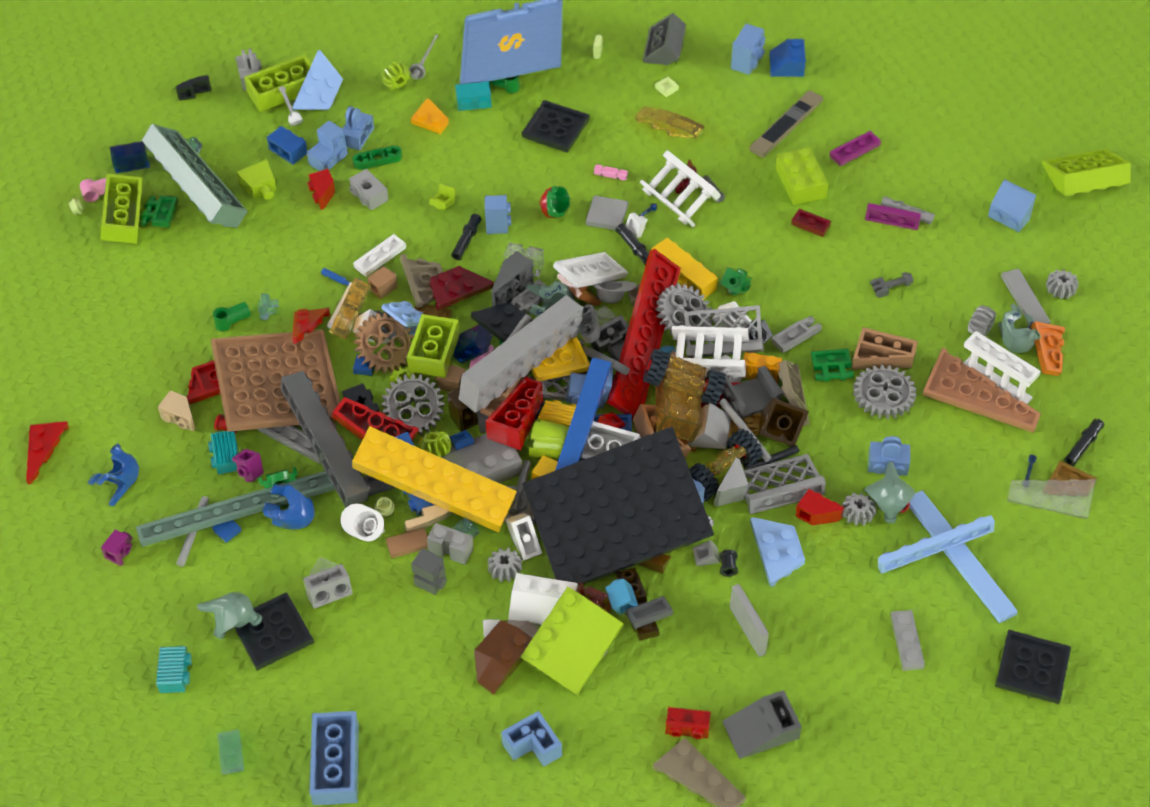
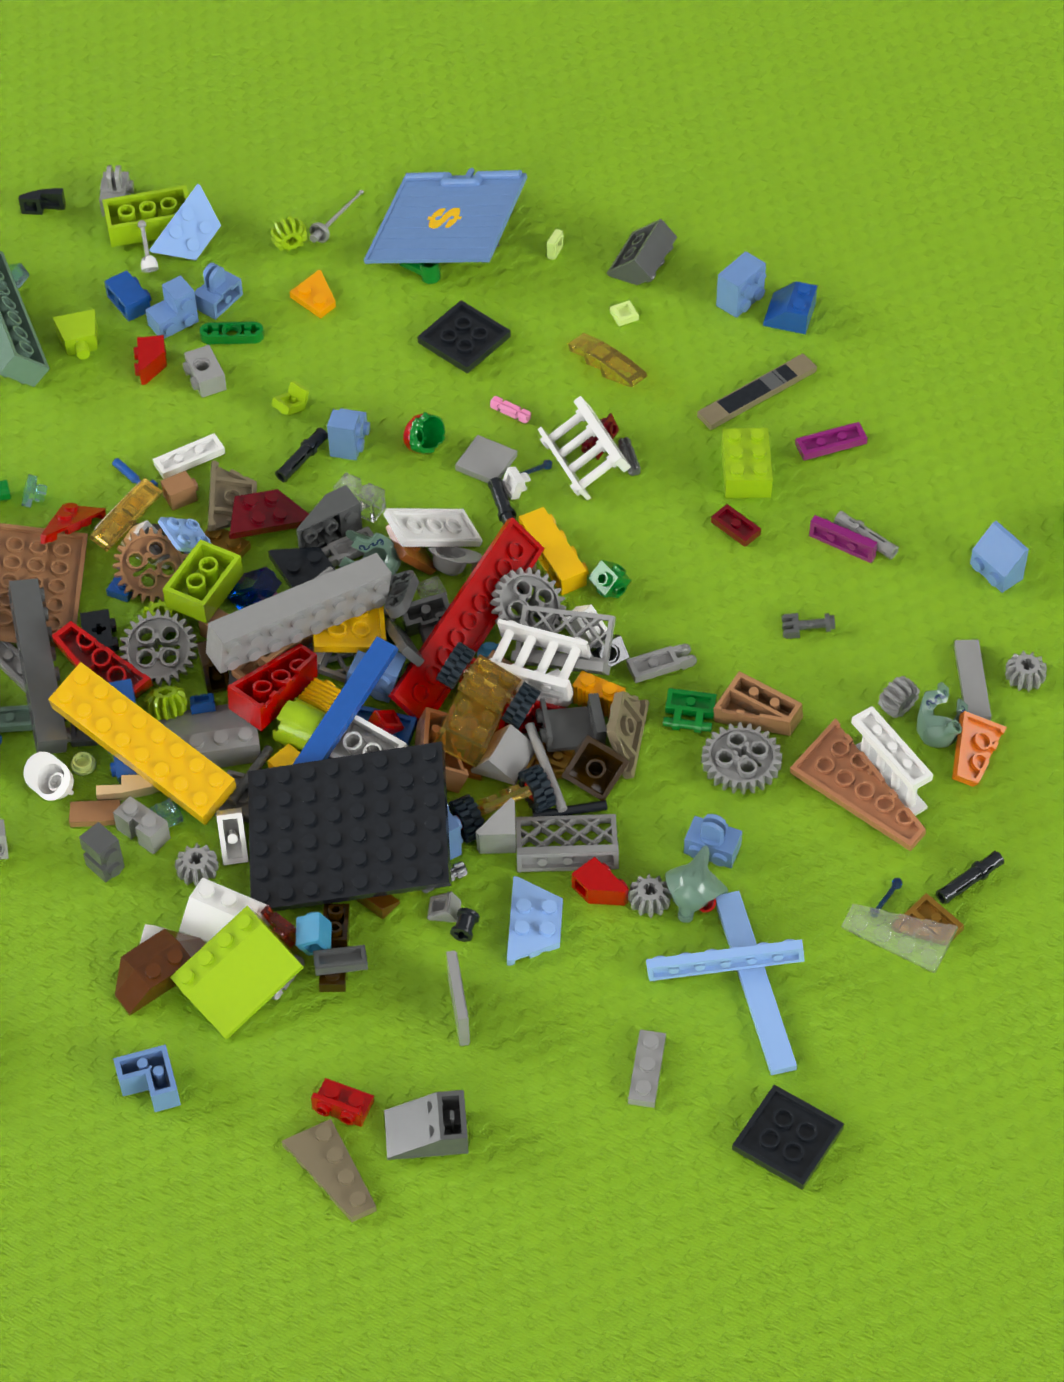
camera: 15 degrees right, 0 degrees up
(473, 96) = (376, 278): teal brick -> none

